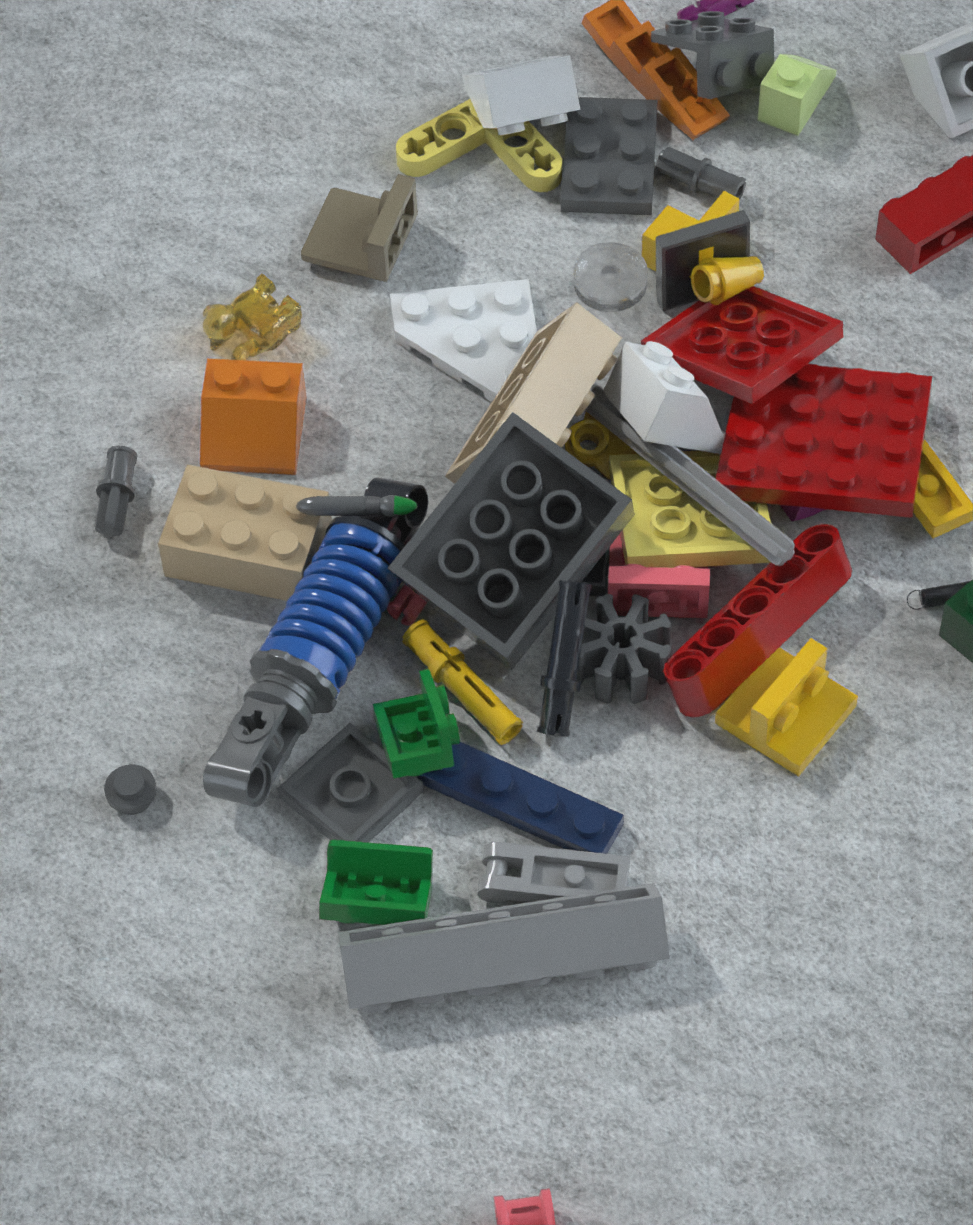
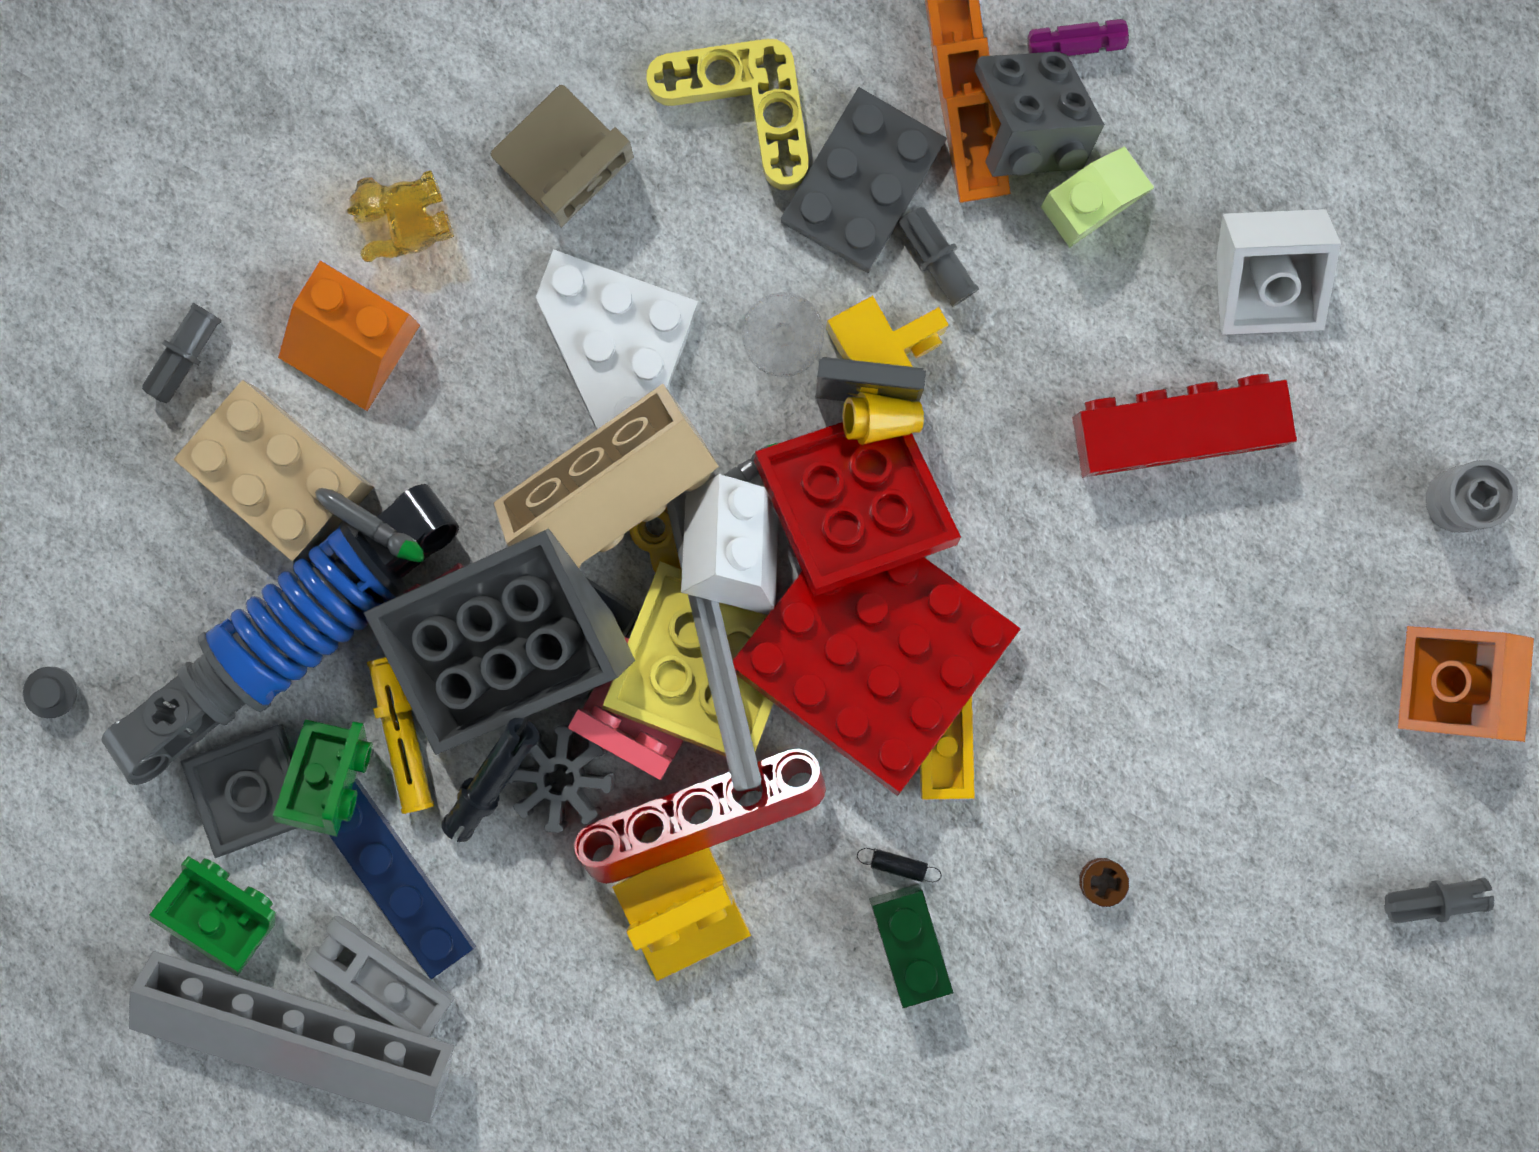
camera: 25 degrees right, 30 degrees up
(523, 92) = (803, 70): white slope -> none

